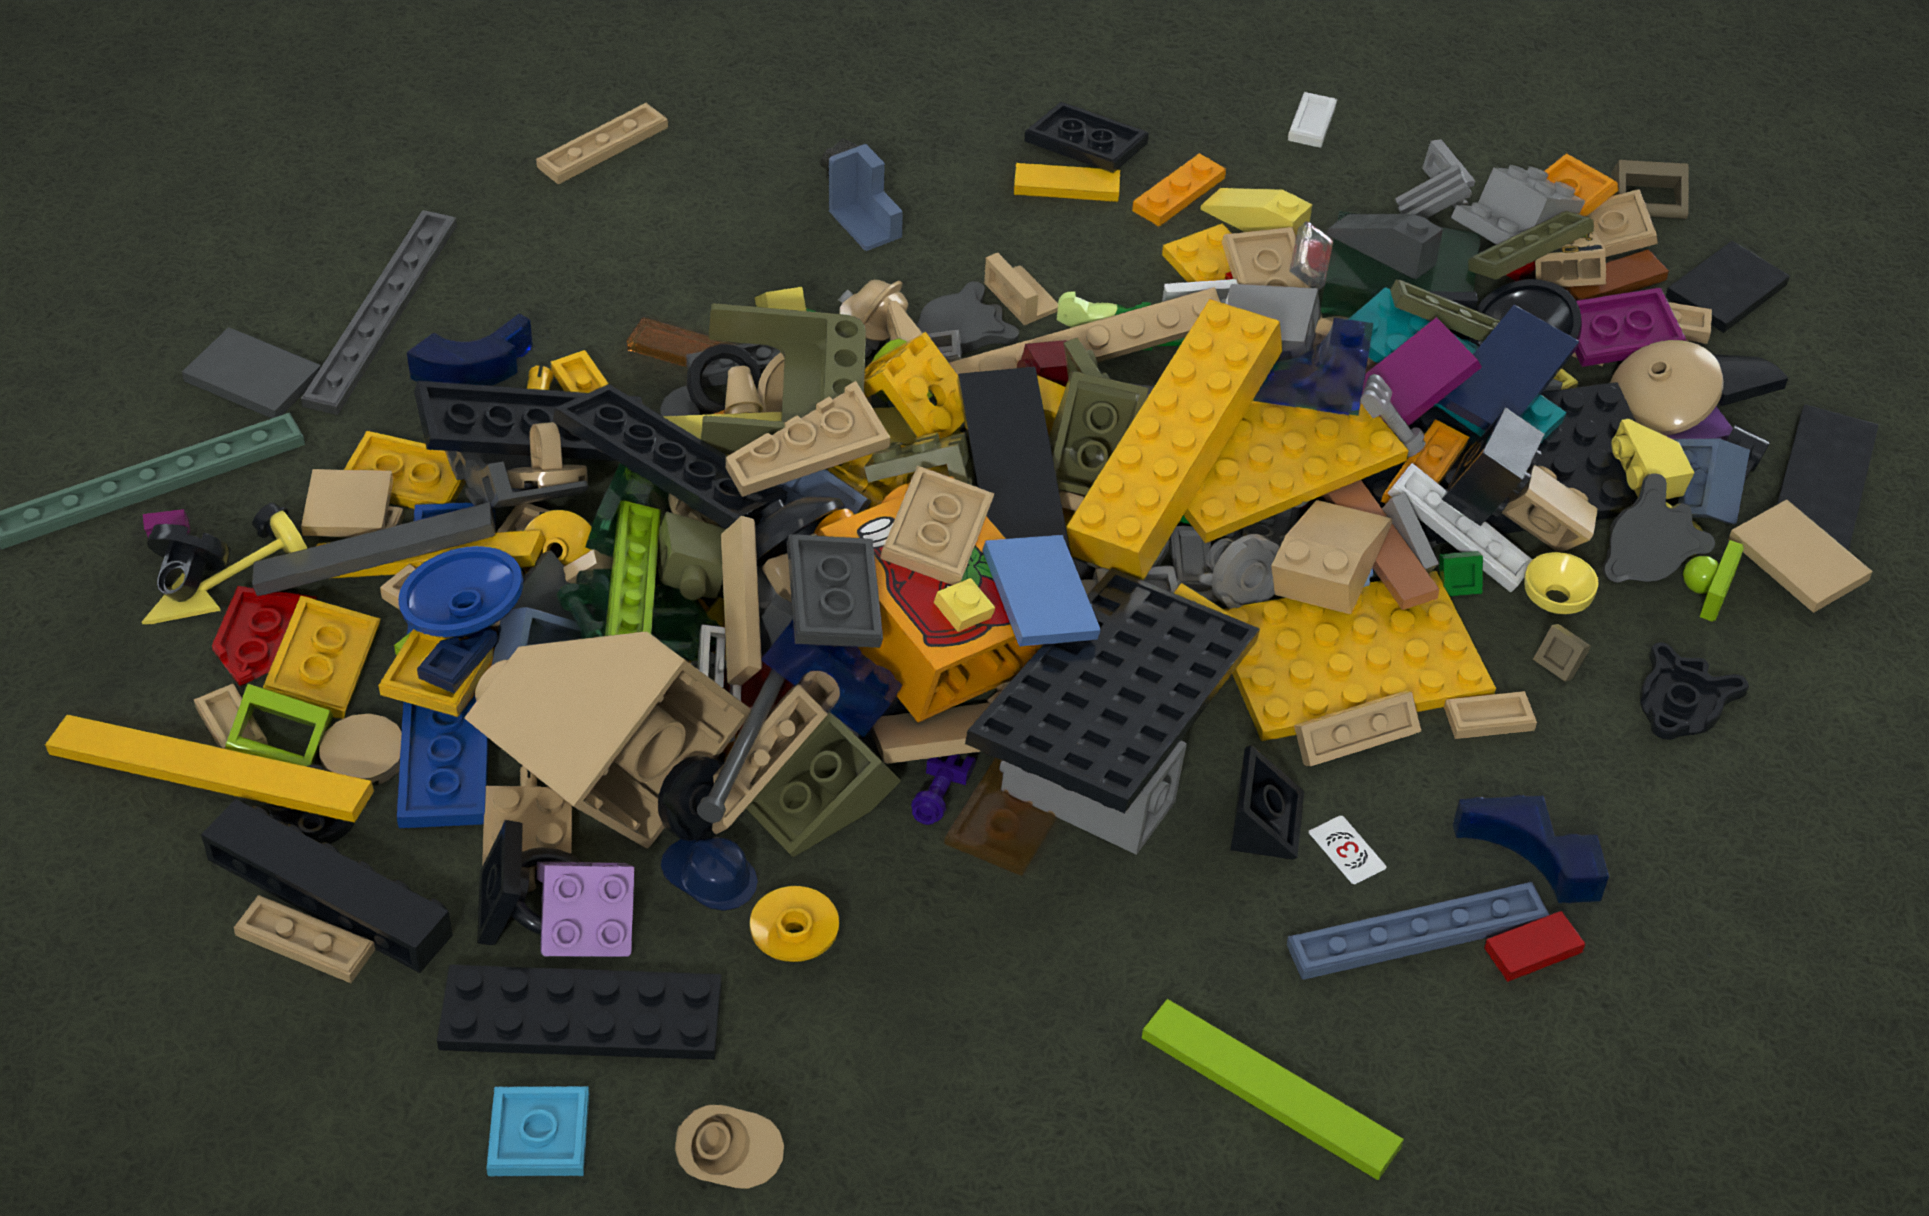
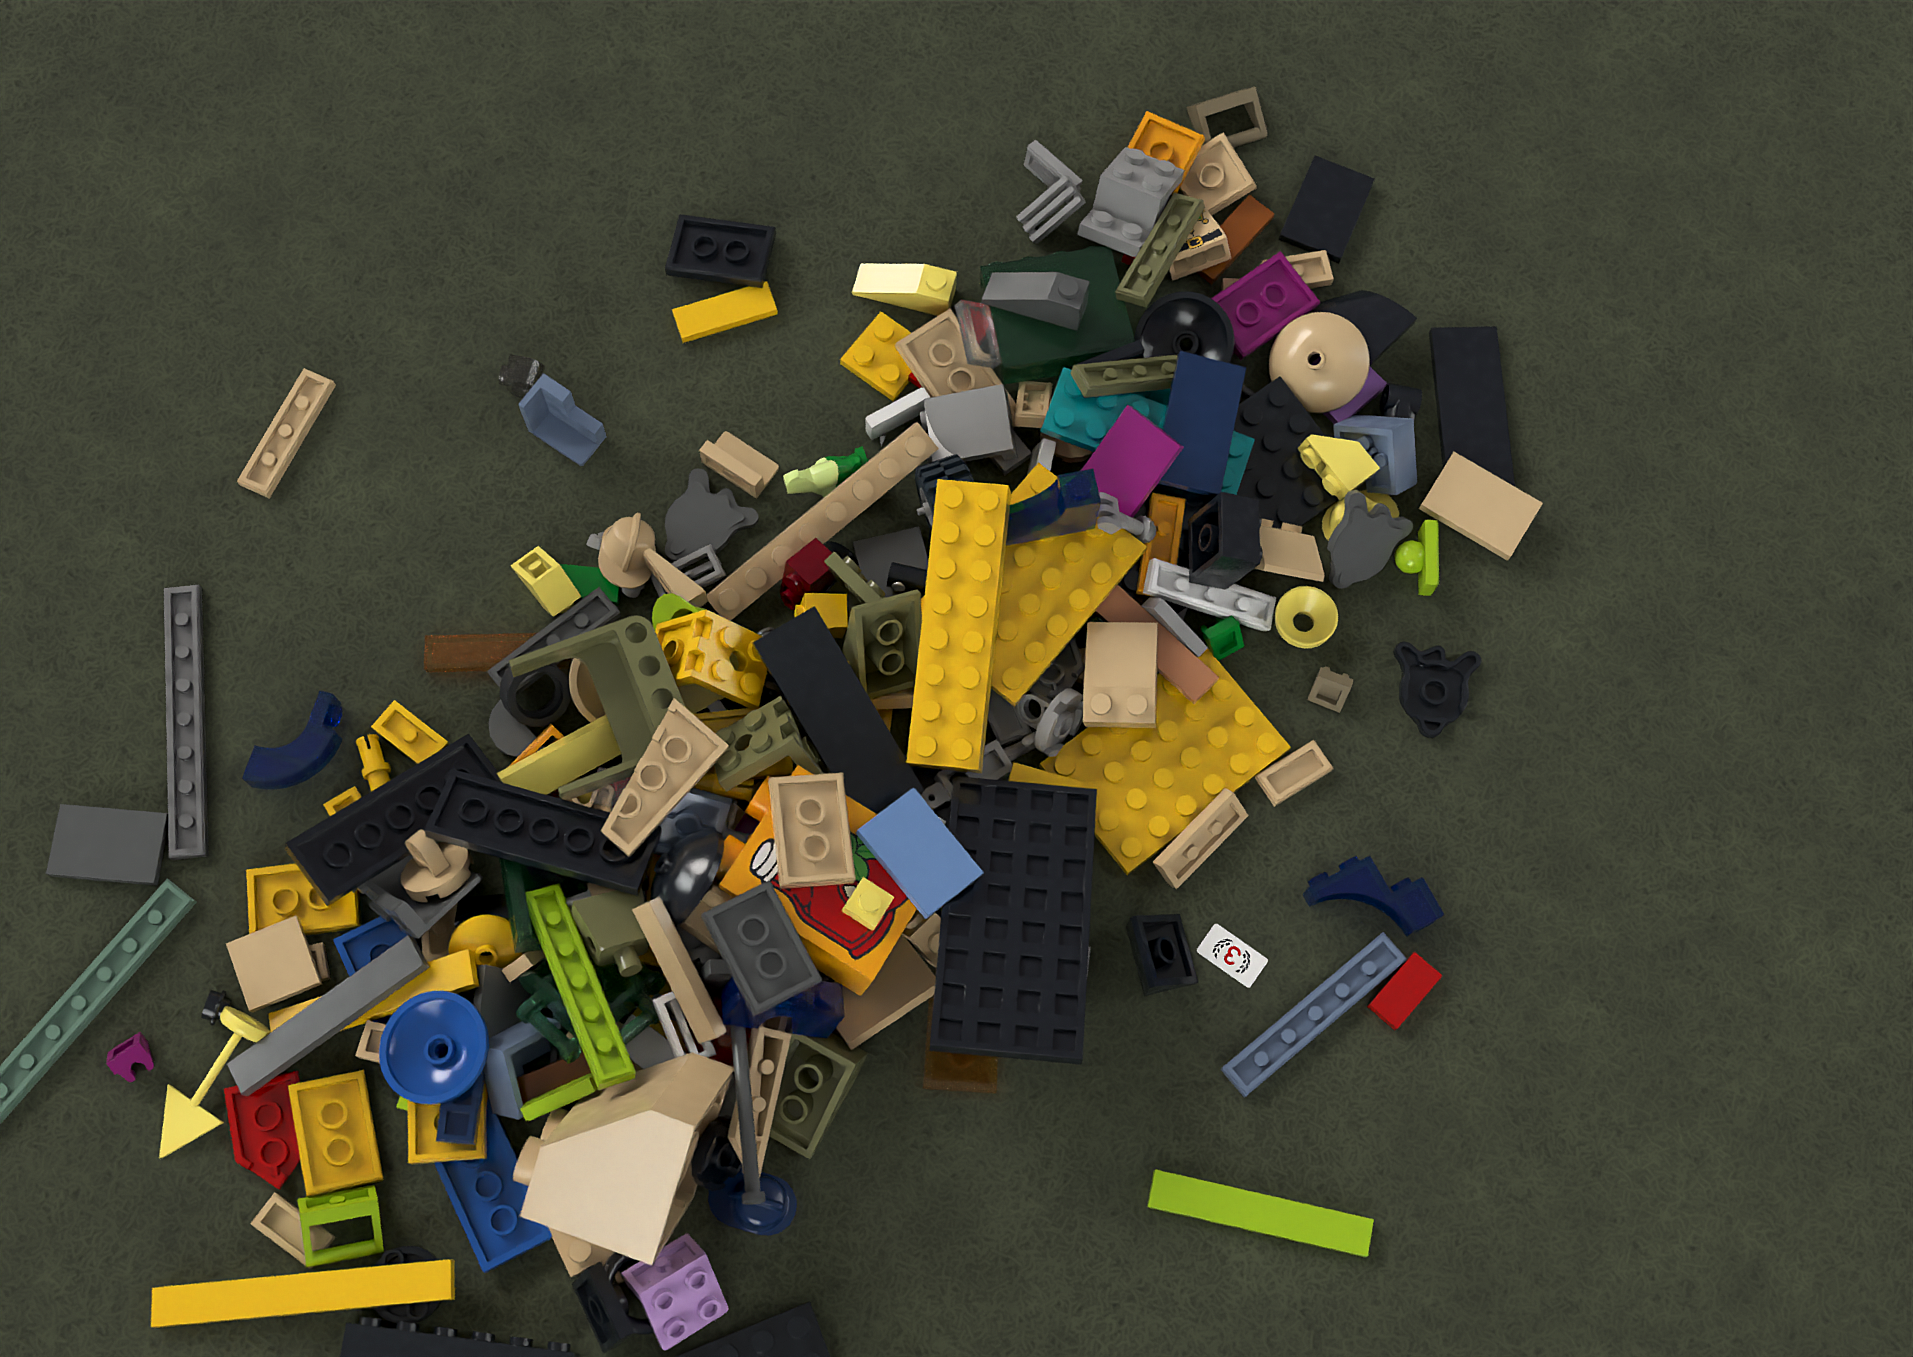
camera: 25 degrees left, 25 degrees up
(185, 555) = (168, 1088): black tile -> none
(362, 748) = (416, 1210): tan tile -> none
(741, 392) = (563, 711): tan cone -> none
(794, 909) = (830, 1216): yellow dish -> none
(929, 805) = (898, 1066): dark purple hinge -> none
(1179, 189) = (826, 280): light orange plate -> none
(1312, 119) = (908, 144): white tile -> none

